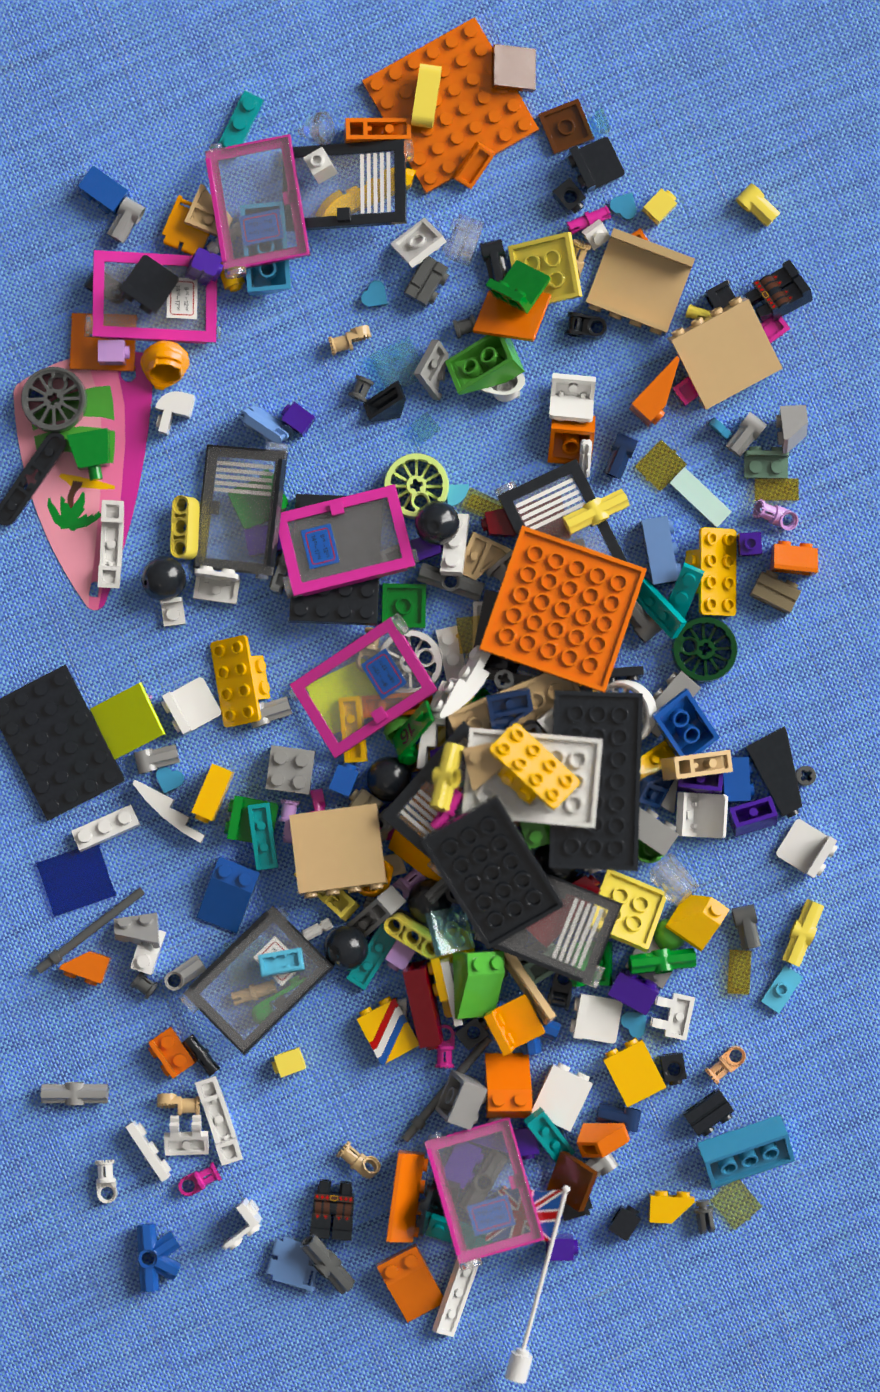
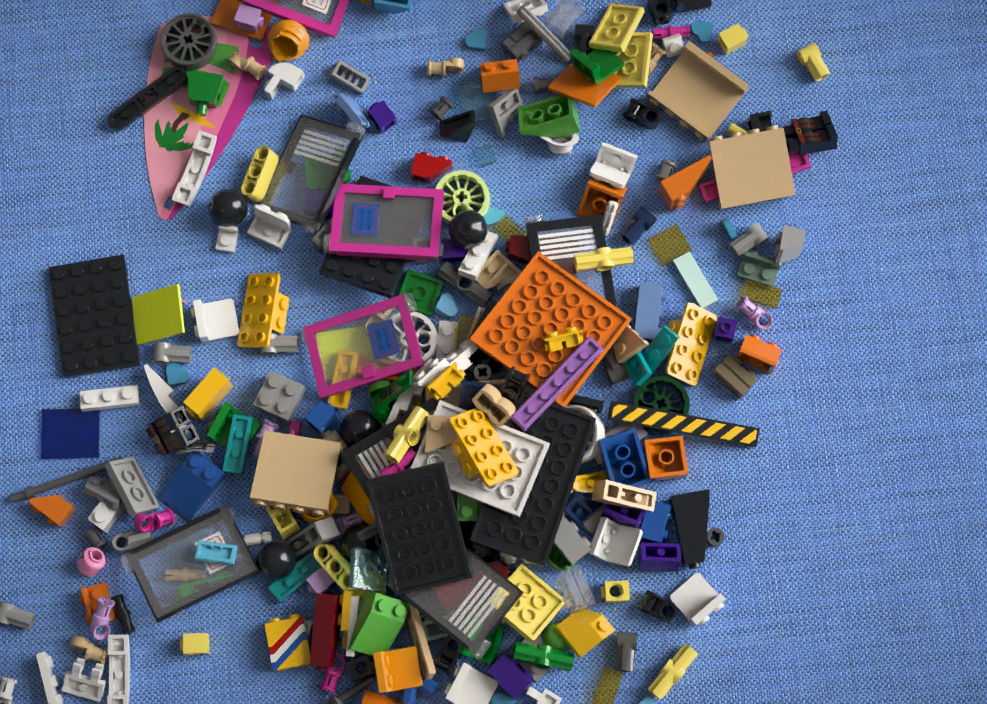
camera: 20 degrees right, 10 degrees down
(131, 406) = (247, 65): none -> tan connector
(148, 1011) = (91, 561): none -> bright pink head
(165, 917) = (132, 486): none -> light grey plate
(182, 1067) = (101, 618): none -> lavender connector
(188, 847) = (167, 435): none -> black hips
(201, 947) = (152, 523): none -> dark pink connector
(219, 852) = (206, 446): none -> sticker
(245, 391) = (353, 72): none -> light grey slope
(368, 462) = (429, 168): none -> red slope
(414, 332) = (499, 75): none -> orange slope
(437, 612) = (446, 306): none -> dark azure tile
(449, 268) = (544, 33): none -> light grey axle
(464, 712) = (439, 386): none -> yellow hinge
(527, 235) = (616, 27): none -> light yellow tile
(533, 716) = (491, 402): none -> tan brick
(544, 684) = (515, 383): none -> black piece
(571, 620) = (570, 336): none -> yellow hinge
(589, 669) = (557, 383): none -> medium lavender tile
(632, 383) = (666, 170): none -> light grey bush
(651, 596) = (628, 344): none -> tan wing
(727, 867) = (623, 586): none -> light yellow brick
(728, 707) = (666, 458): none -> orange slope
(735, 664) = (683, 423): none -> tile
(765, 869) = (656, 606): none -> black piece

